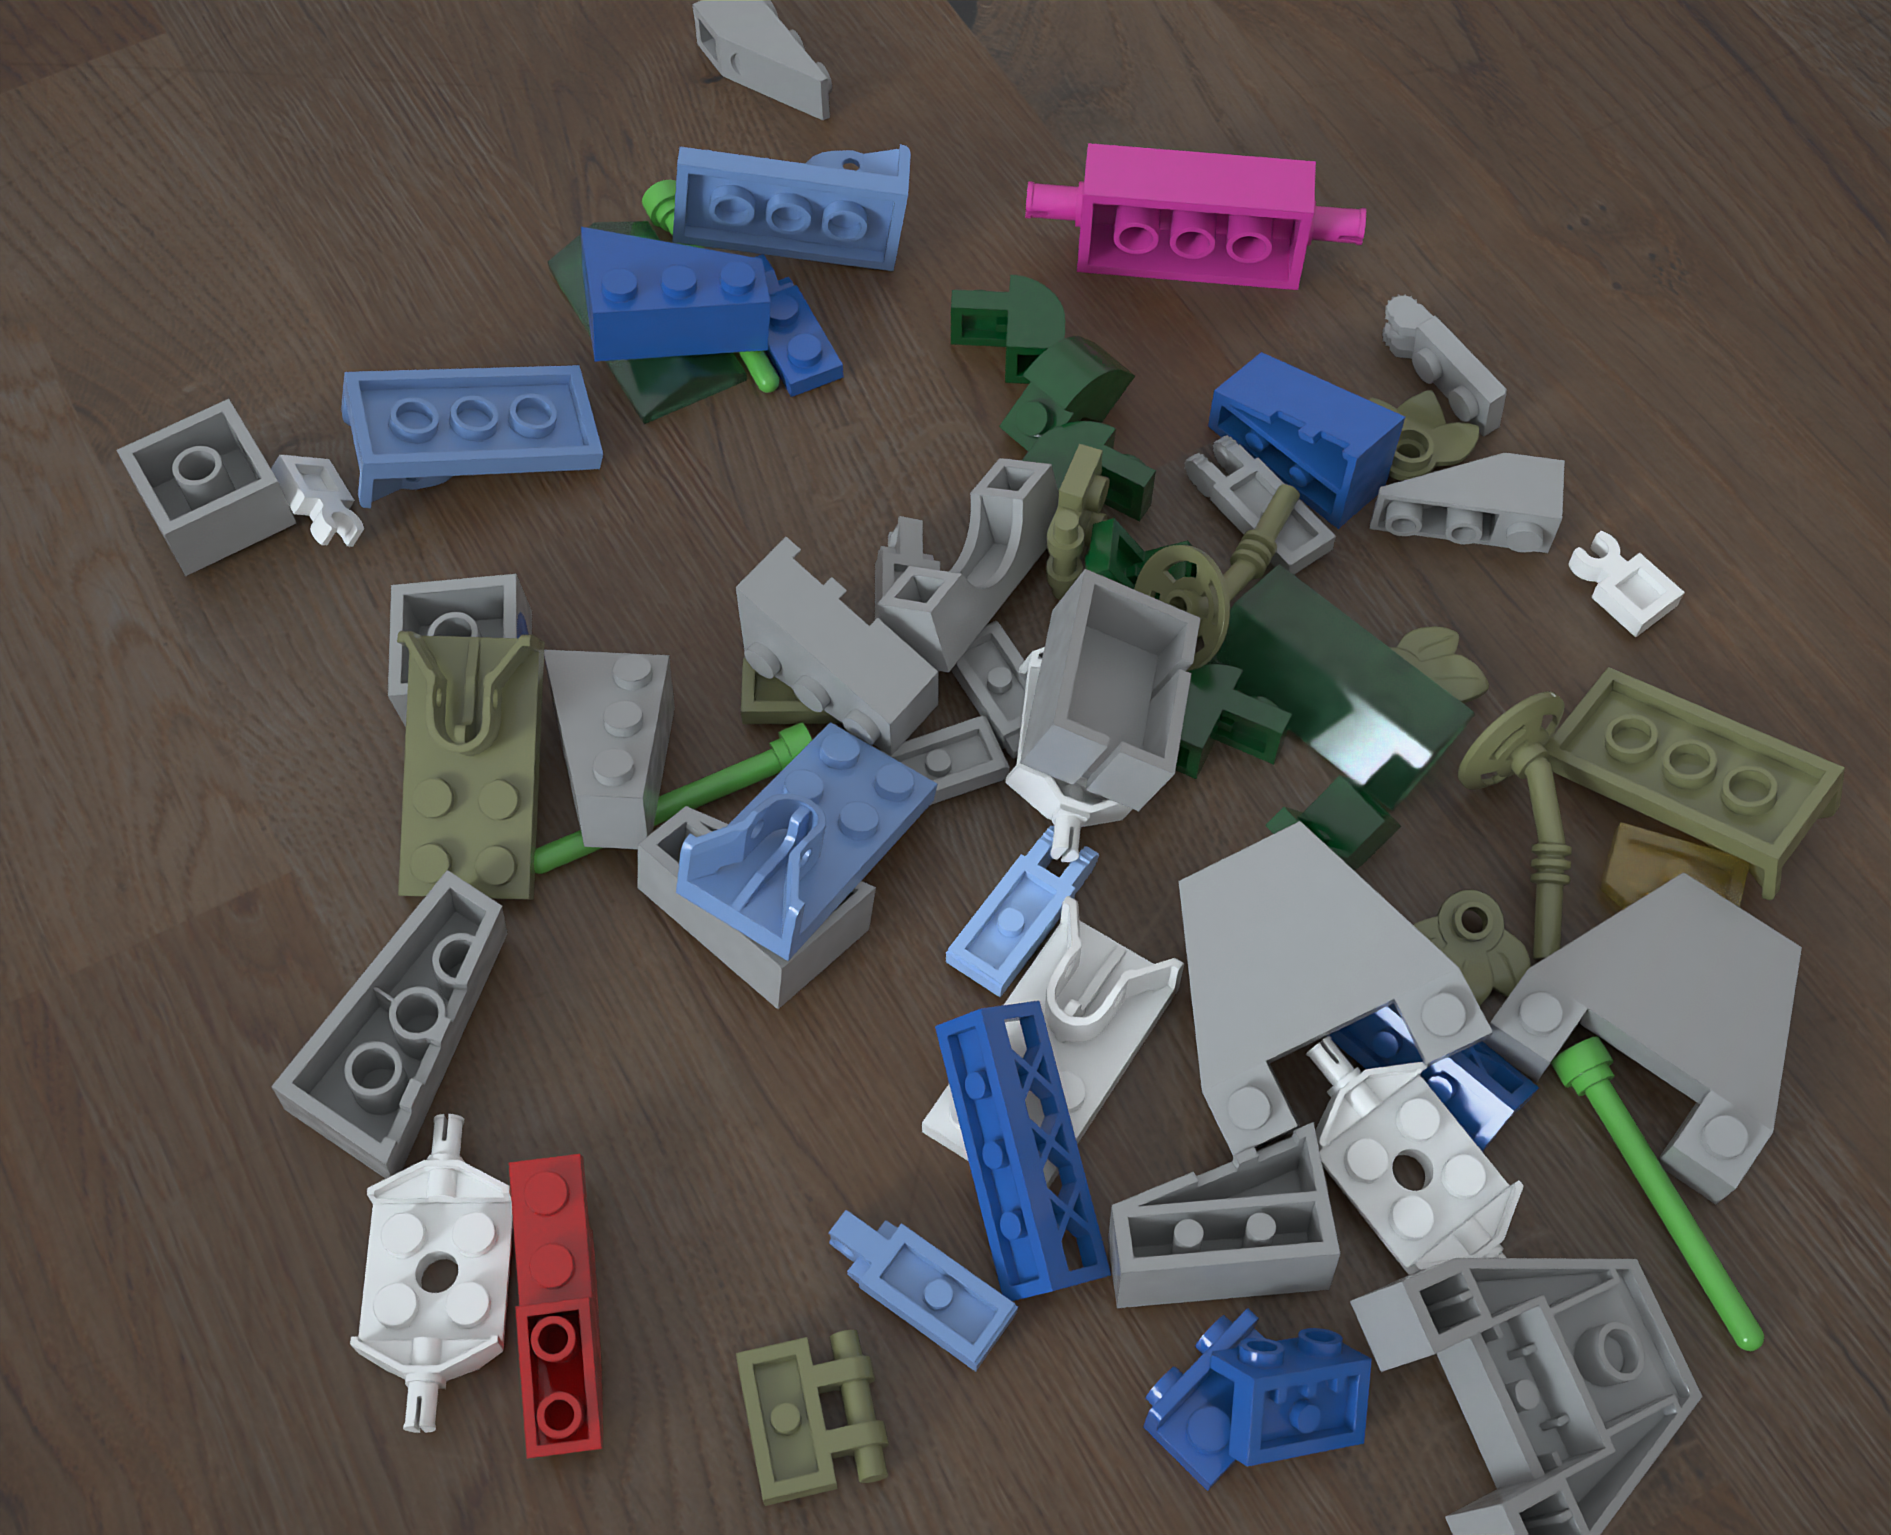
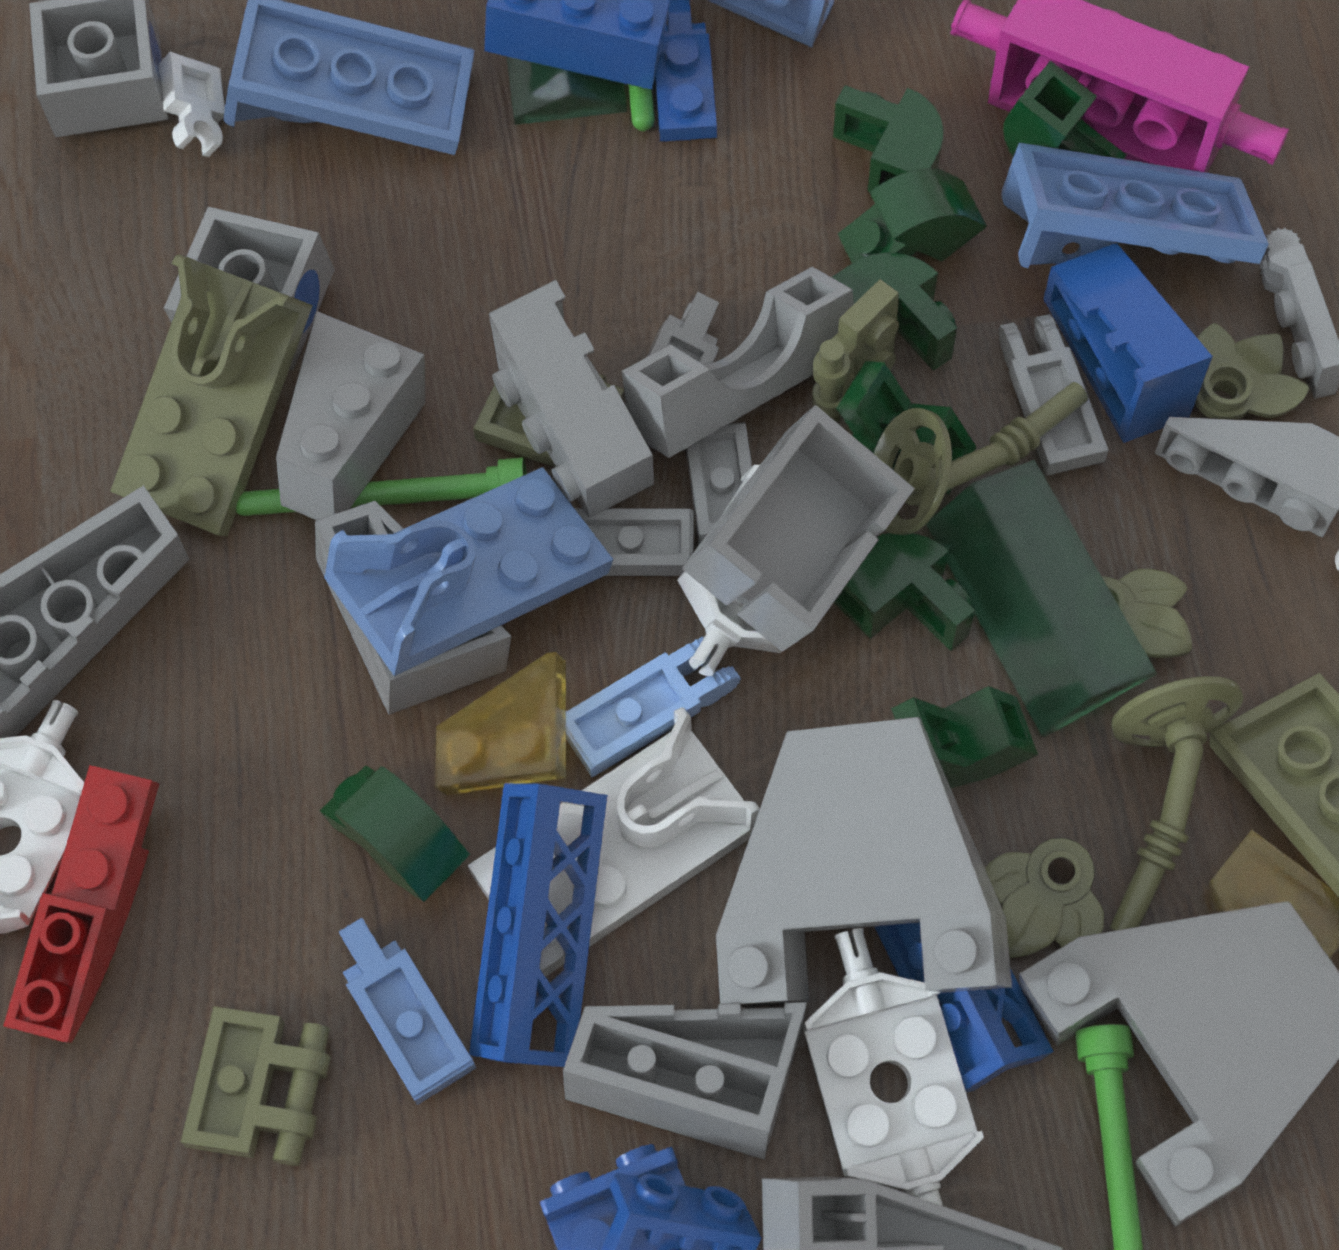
camera: 25 degrees right, 5 degrees up
(840, 1109) = (396, 830): none -> dark green brick
(904, 984) = (507, 733): none -> clear yellow wing
(1156, 279) = (1052, 114): none -> dark green brick
(1230, 319) = (1129, 202): none -> medium blue plate

